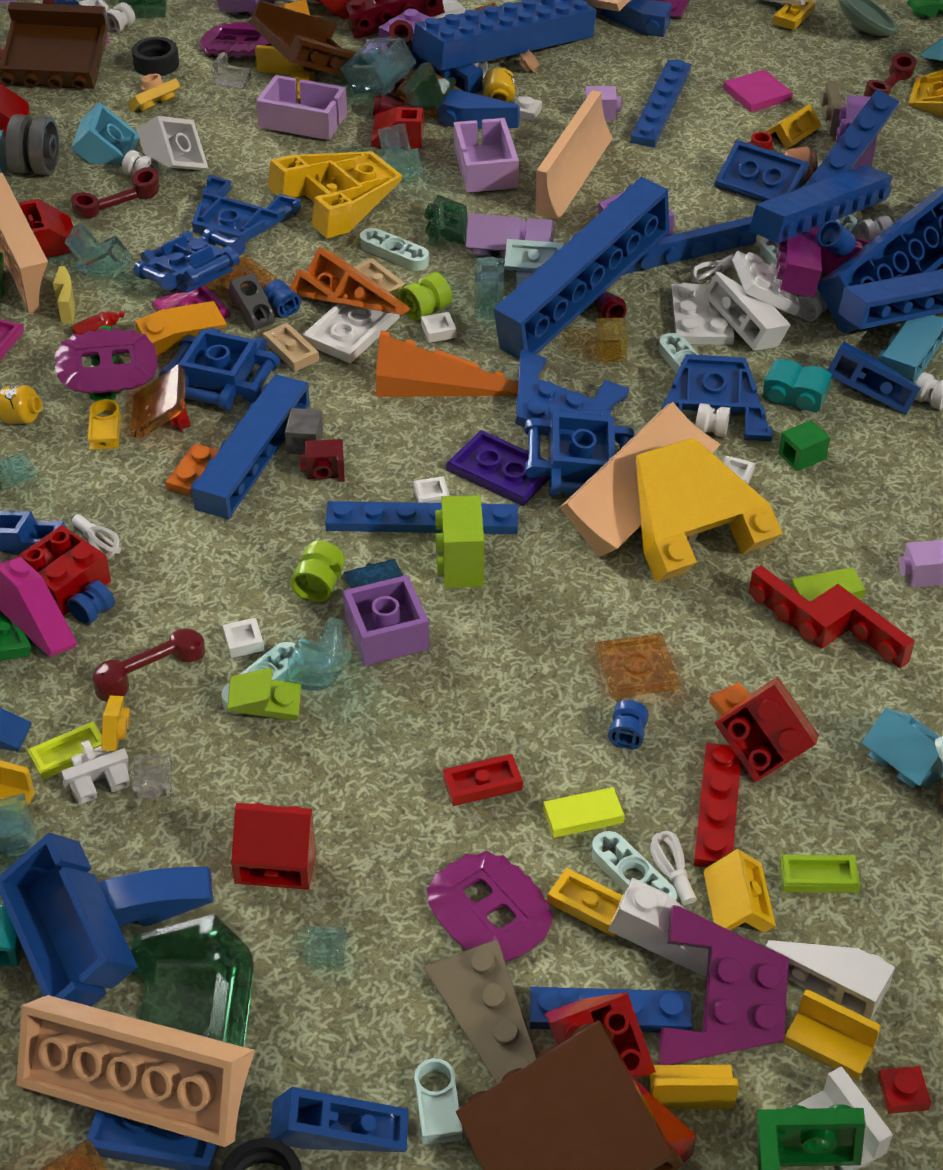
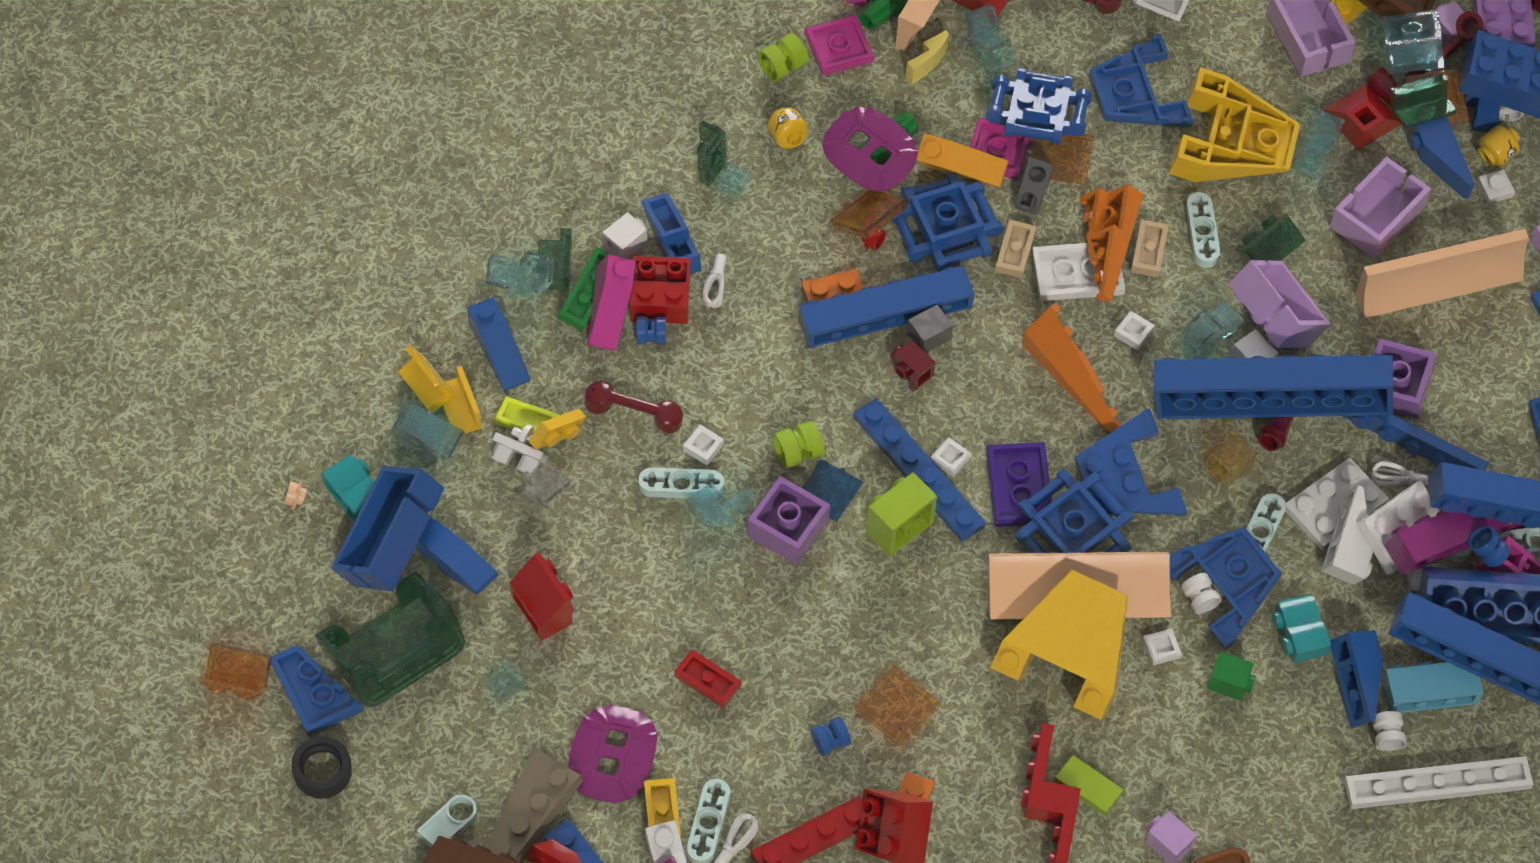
camera: 50 degrees right, 15 degrees up
(93, 323) = (920, 102): red piece -> none
(104, 431) = (818, 200): yellow piece -> none
(132, 1068) = (323, 641): light nougat arch -> none
(261, 696) = (660, 498): lime slope -> none
(282, 298) = (1062, 200): blue wheel -> none
(337, 1123) = (389, 781): blue slope -> none
(426, 296) = (1156, 296): lime wheel -> none
(527, 254) = (1257, 336): light aqua plate -> none
(583, 812) = (735, 758): neon yellow tile -> none

